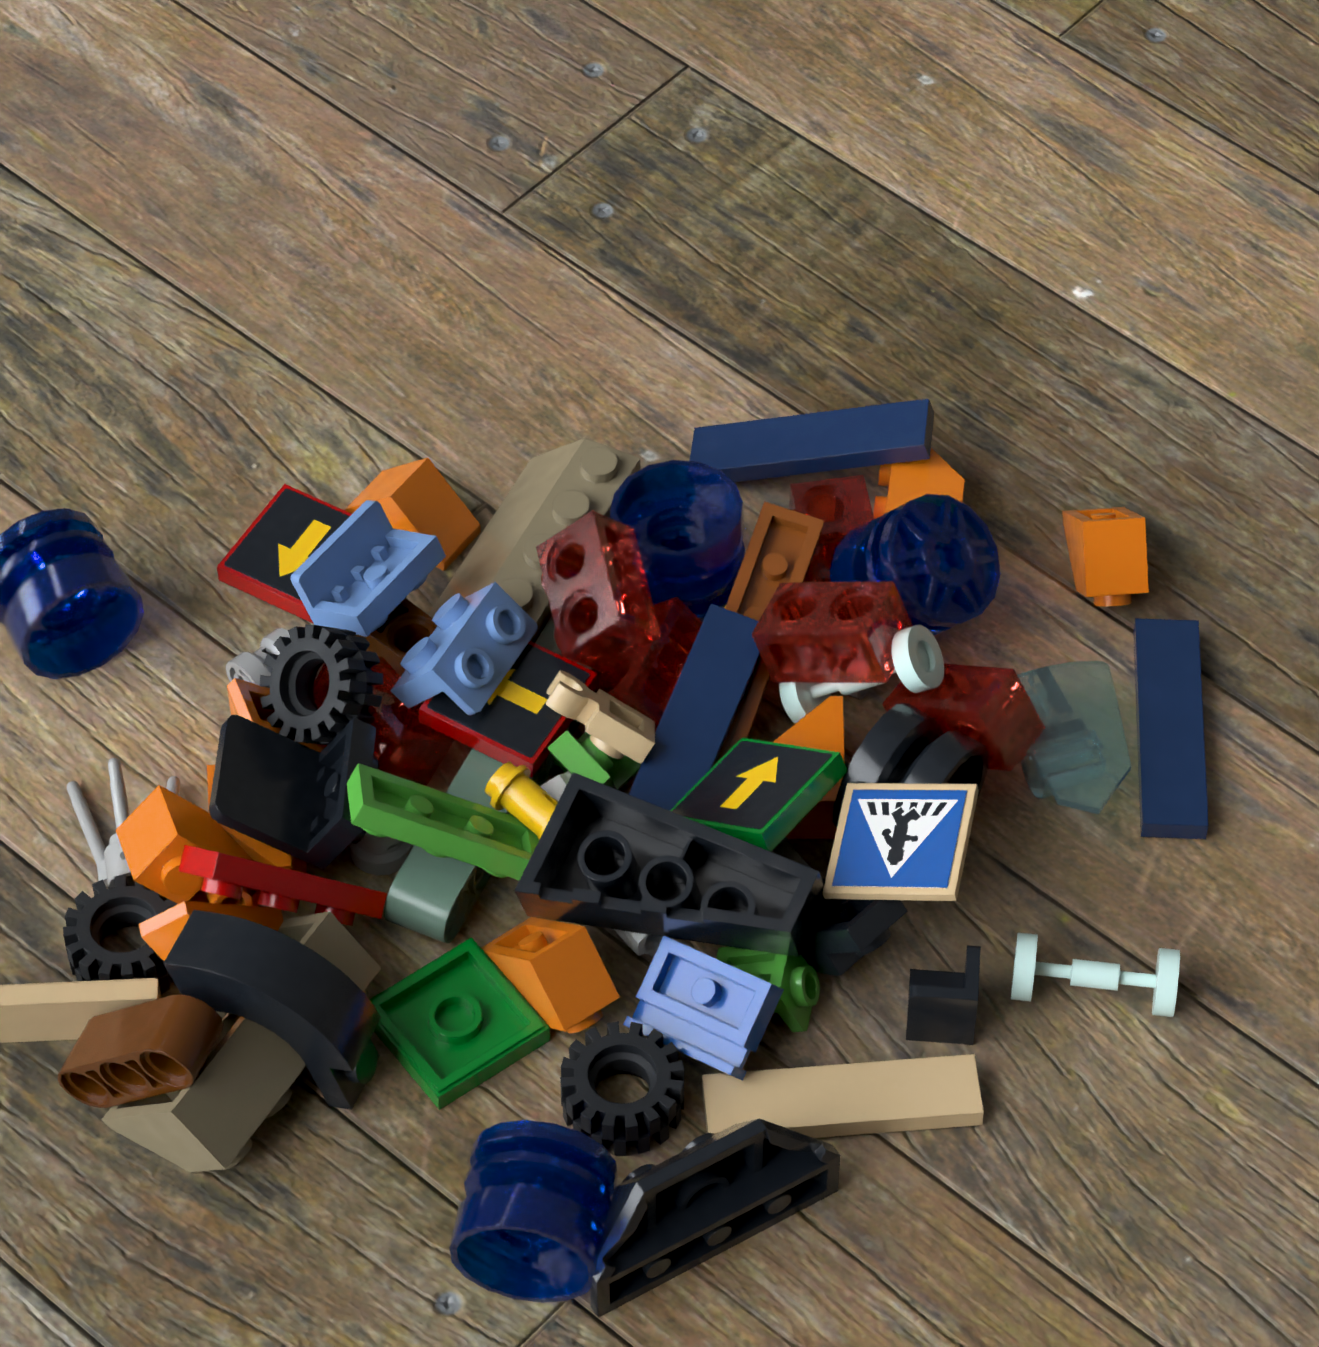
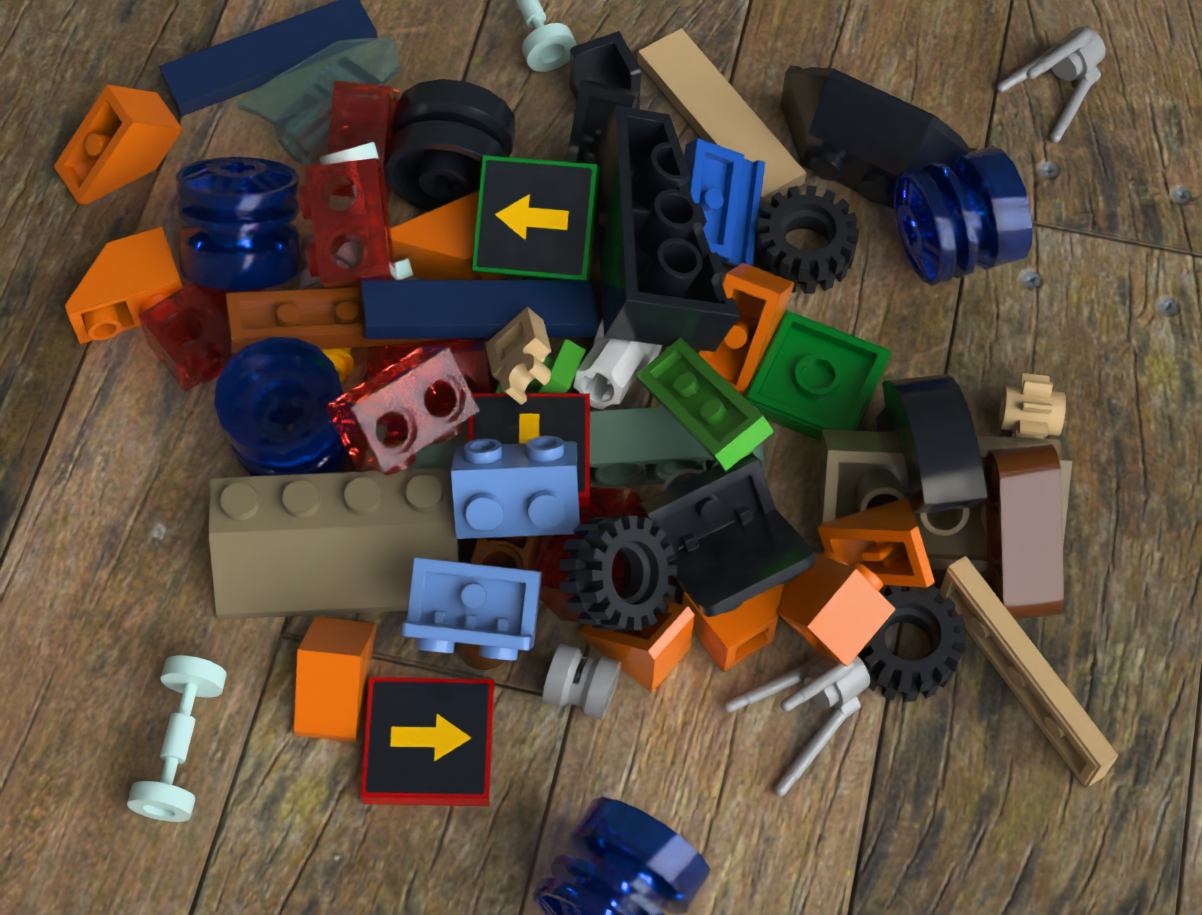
camera: 120 degrees left, 10 degrees up
(277, 1171) = (1032, 408): none -> tan gear
(280, 886) = (827, 513): red plate -> none
(378, 356) = (192, 678): none -> light aqua wheel
(521, 796) = (630, 383): yellow pin -> none
(817, 441) = (113, 378): dark blue tile -> none
(901, 842) = (538, 89): piece -> none

